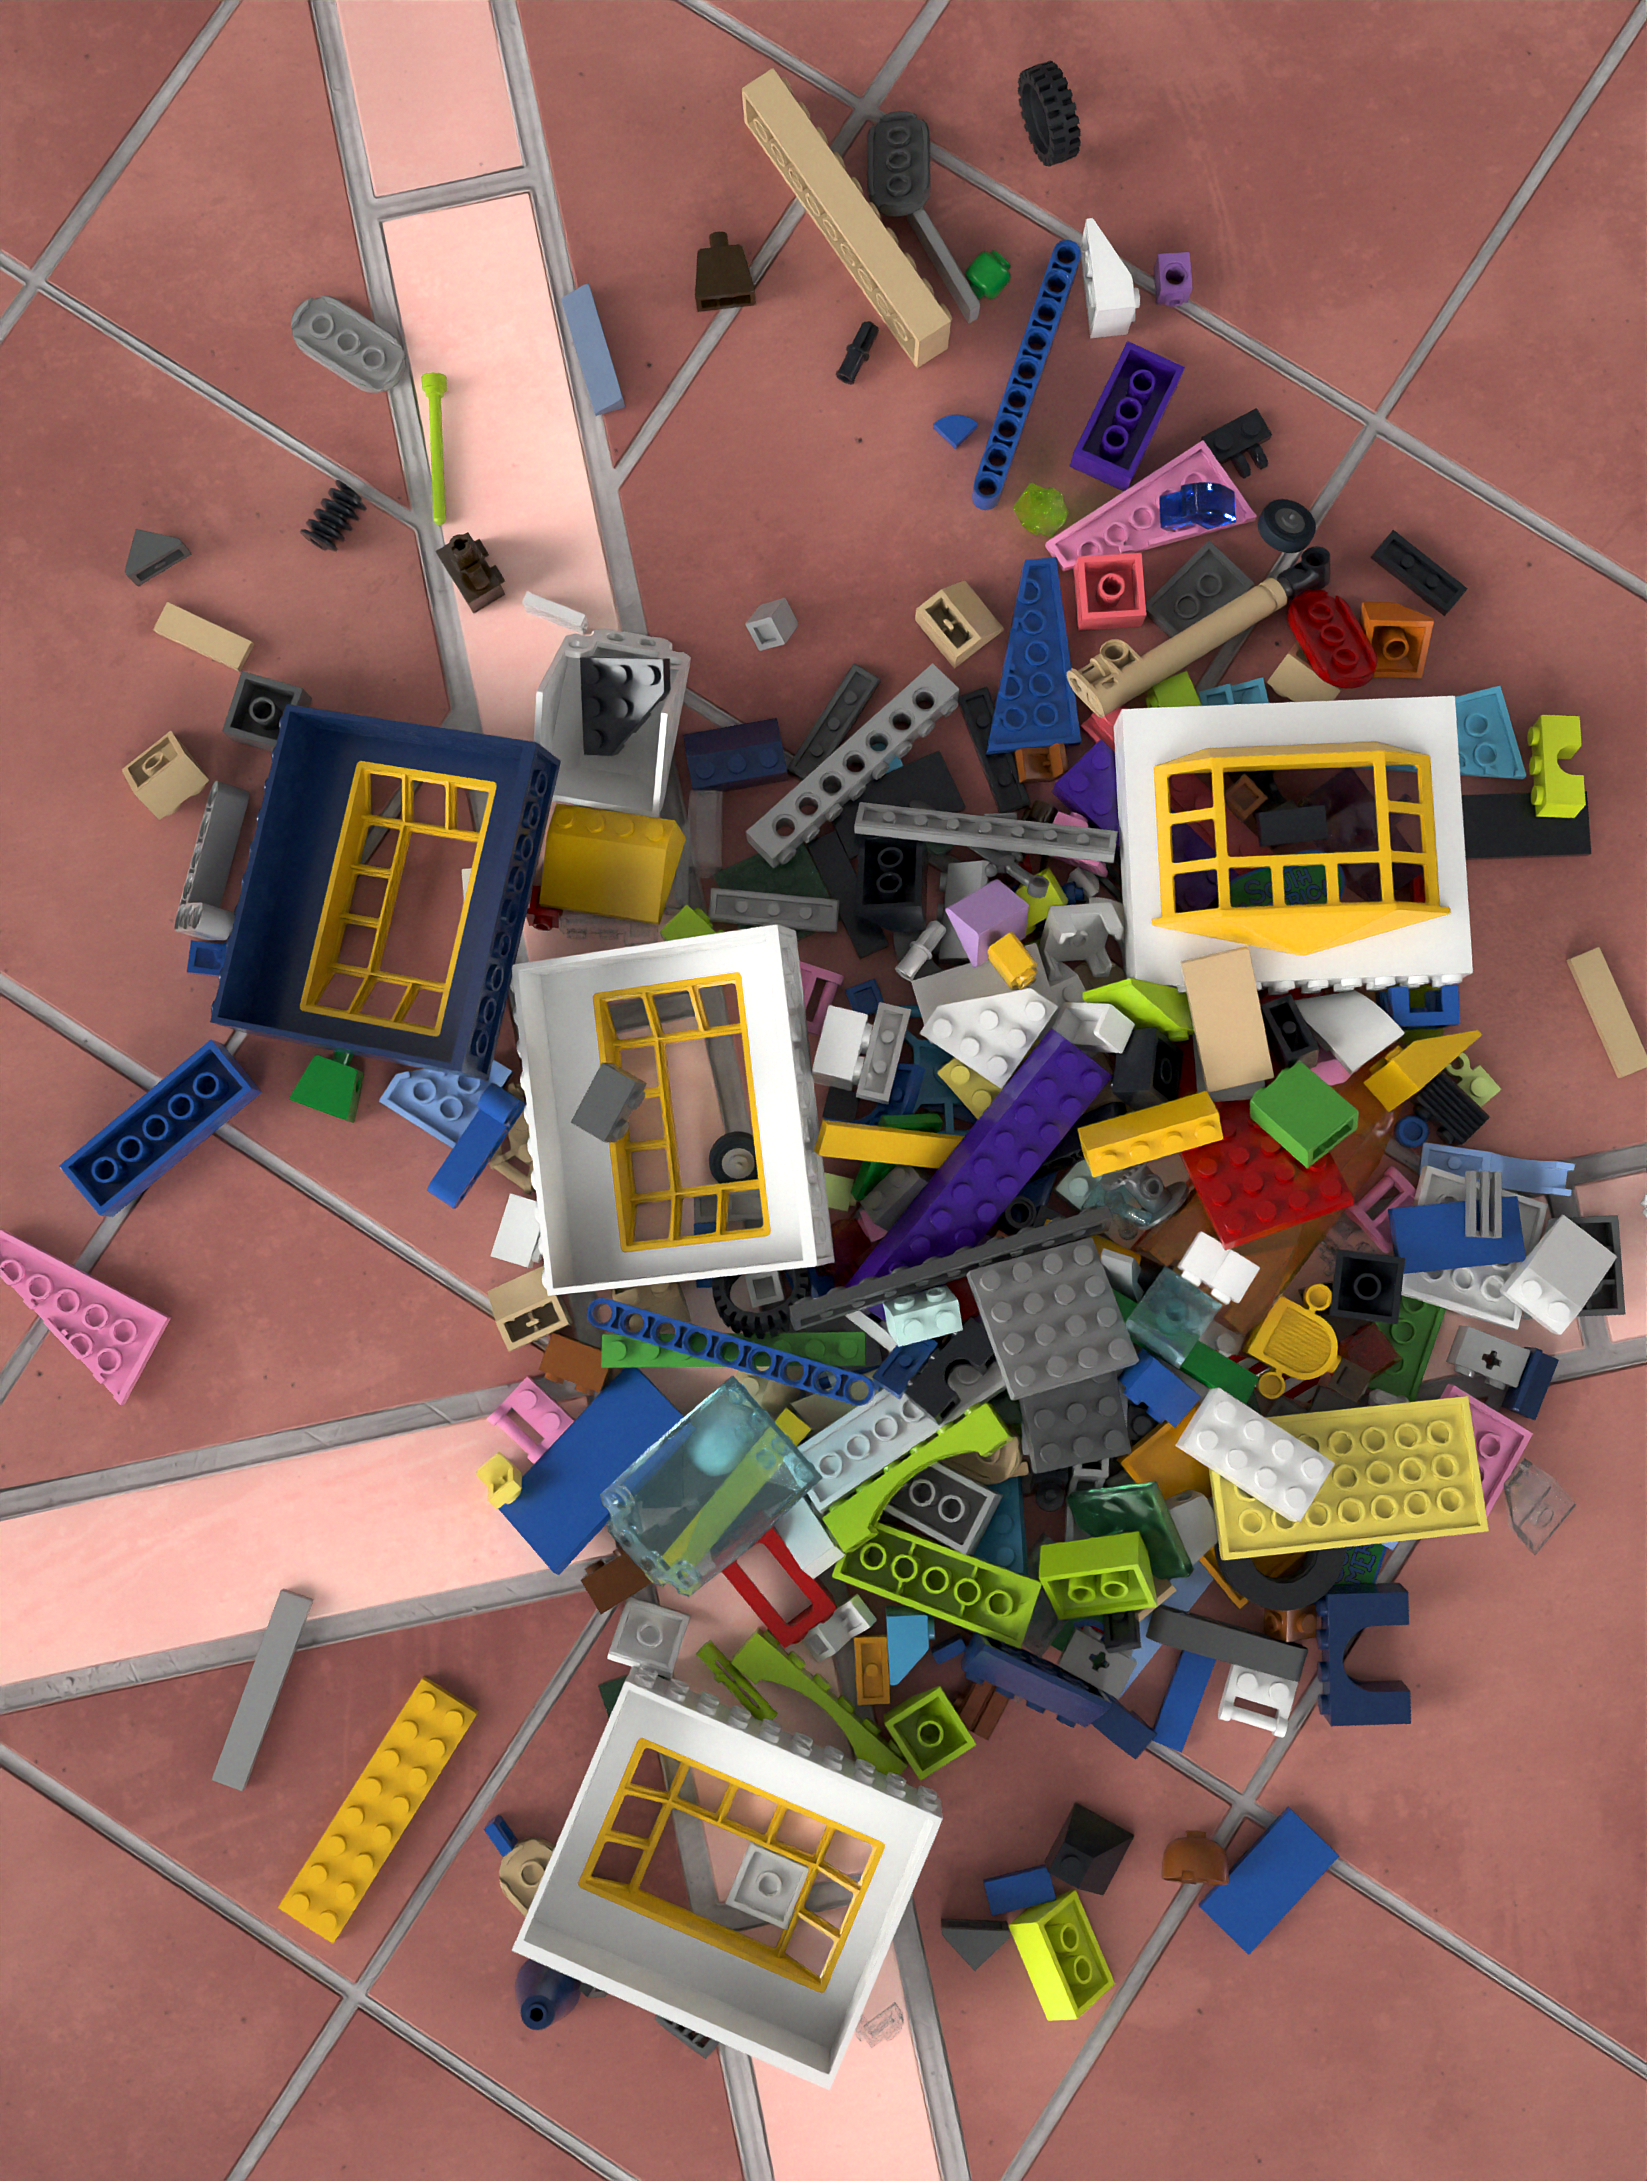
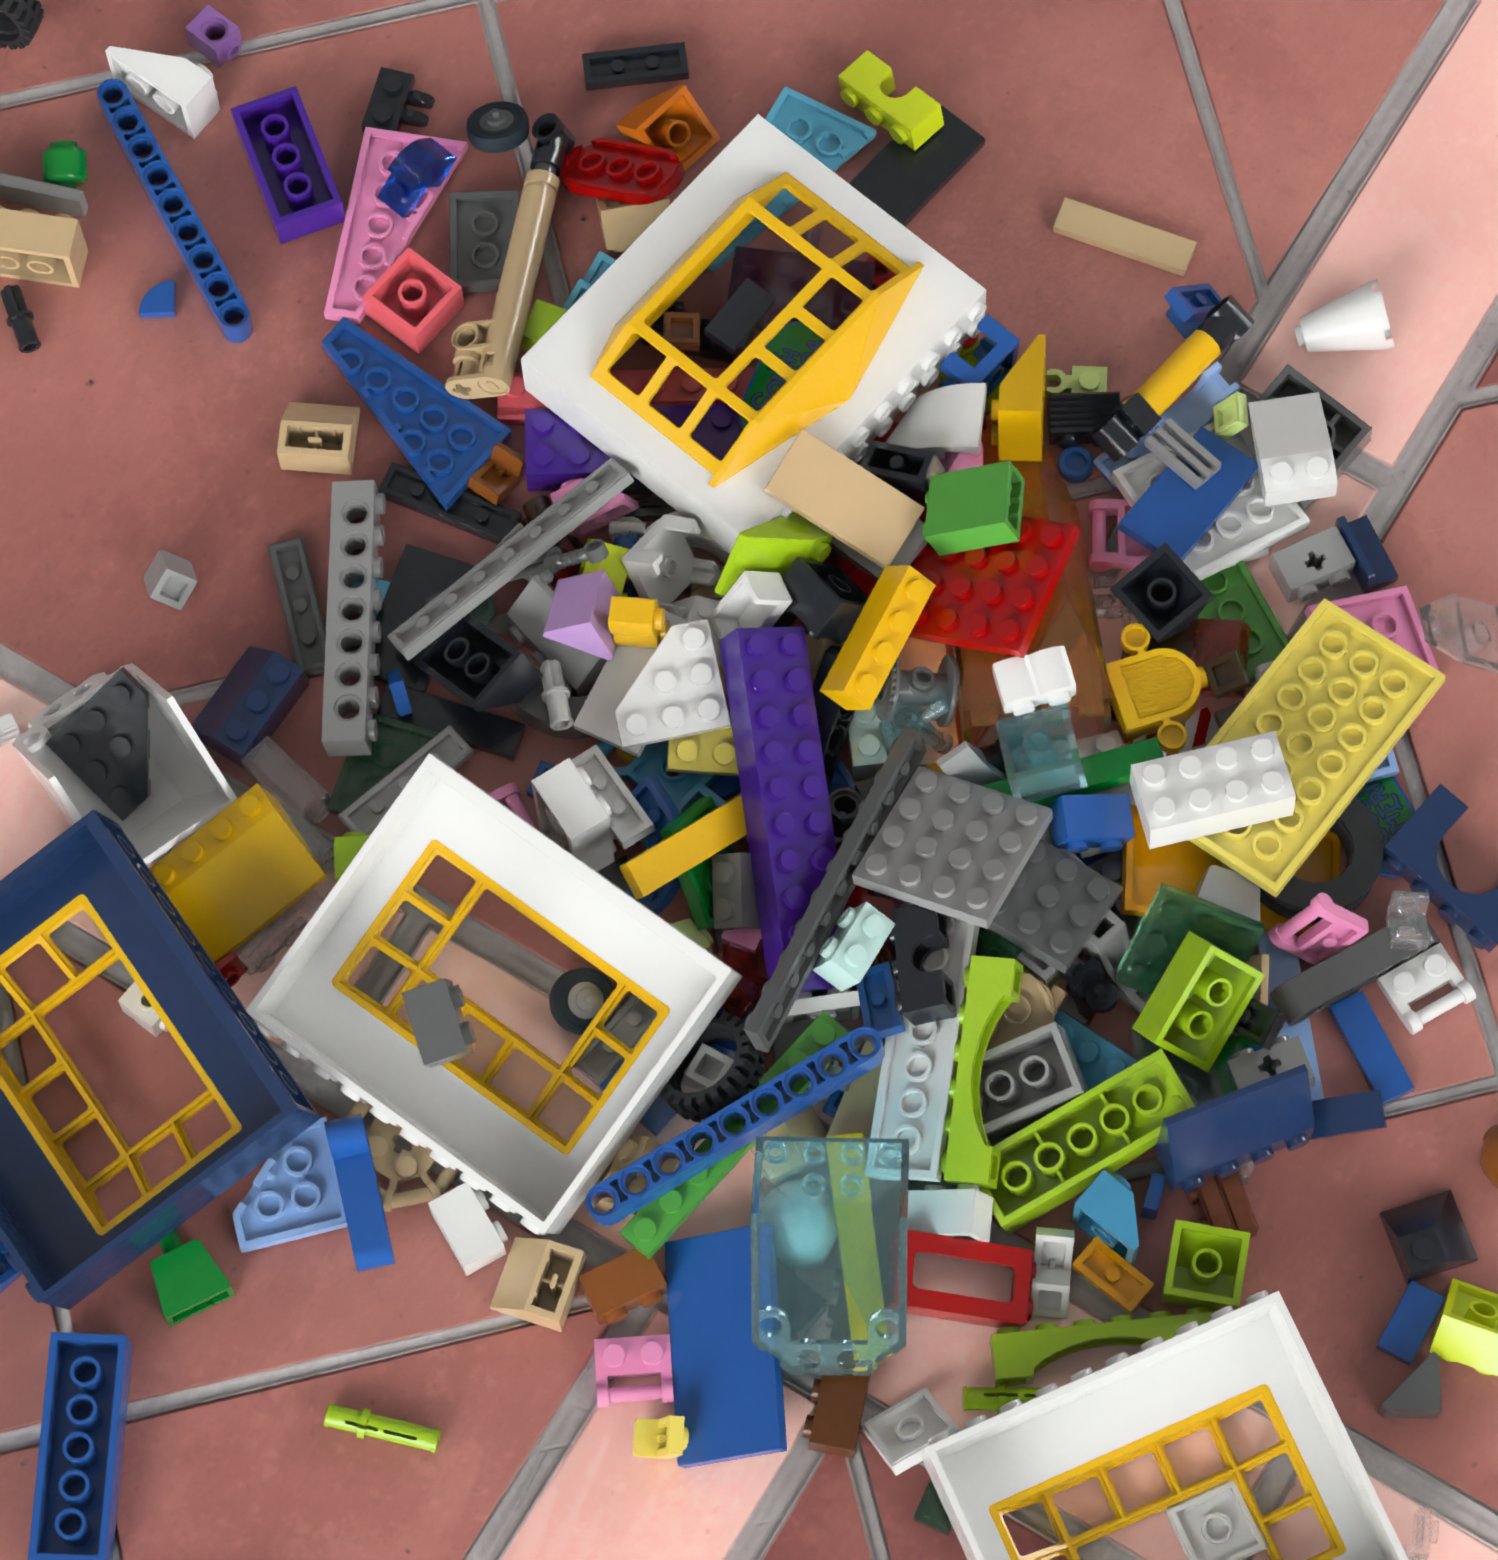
camera: 50 degrees left, 15 degrees down
(348, 1292) = (382, 1427): none -> lime pin
(831, 844) = (398, 692): none -> blue tile
(1041, 510) = (295, 293): clear neon green brick -> none
(1227, 1601) = (1325, 938): none -> bright pink plate
(1288, 1657) = (1408, 920): none -> clear bracket
(1291, 1624) = (1376, 903): dark orange bracket -> none
(1484, 1148) = (1142, 410): none -> piece
(1543, 1209) = (1231, 416): none -> yellowish green tile
(1600, 1108) = (1190, 306): none -> blue slope

